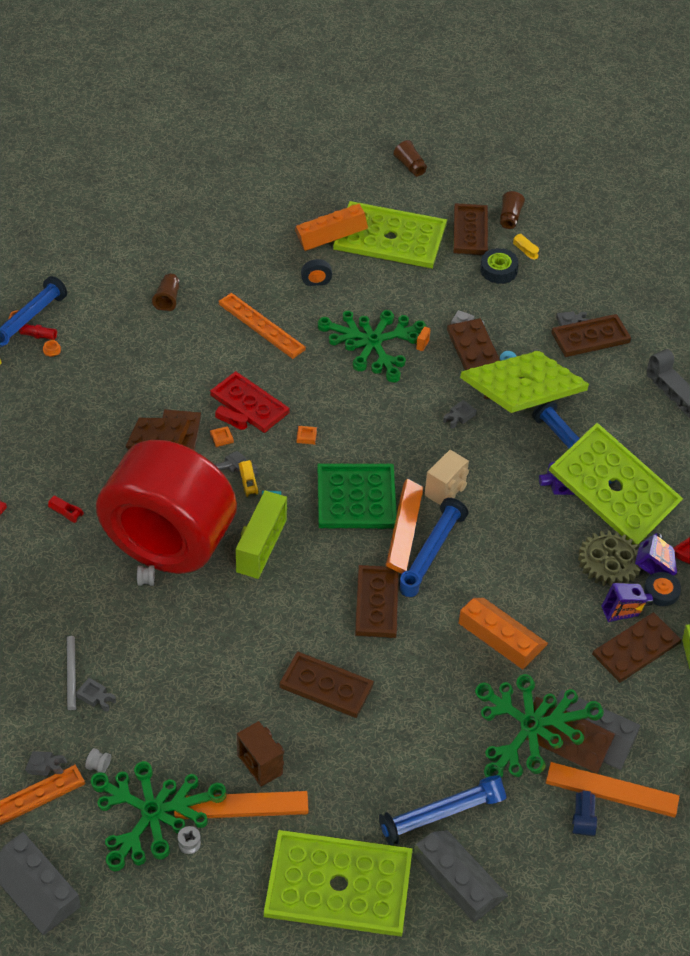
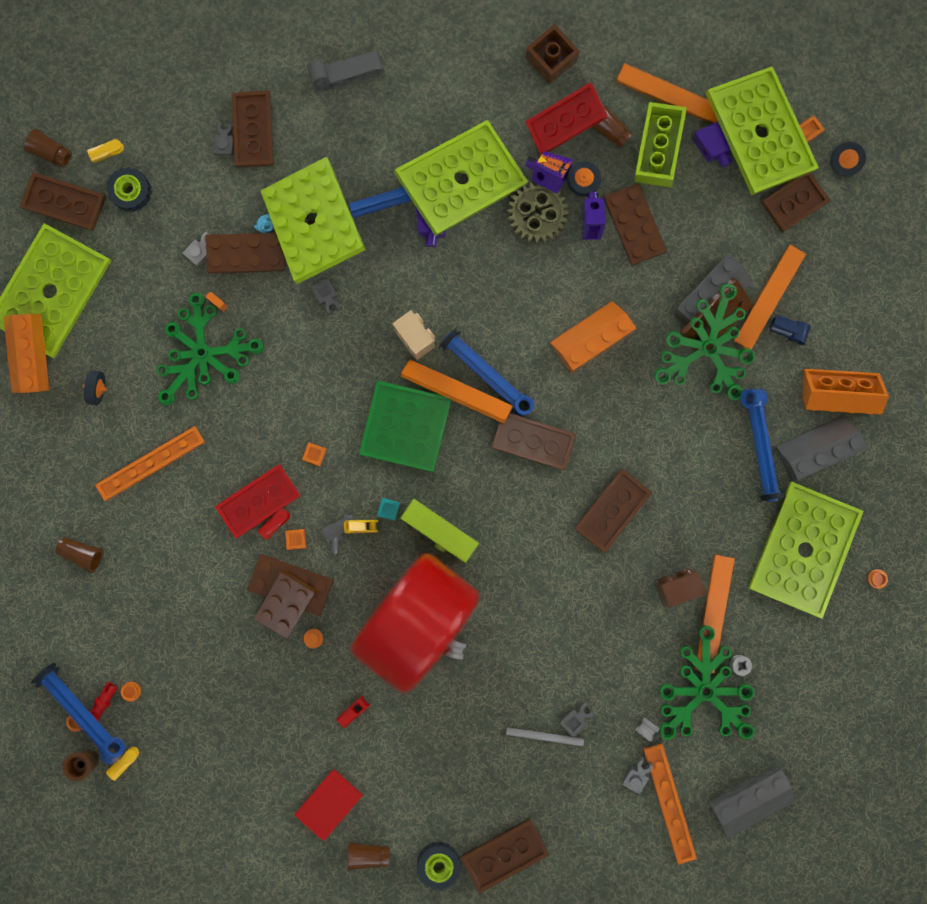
camera: 75 degrees left, 35 degrees up
(534, 883) = (844, 391): none -> orange slope

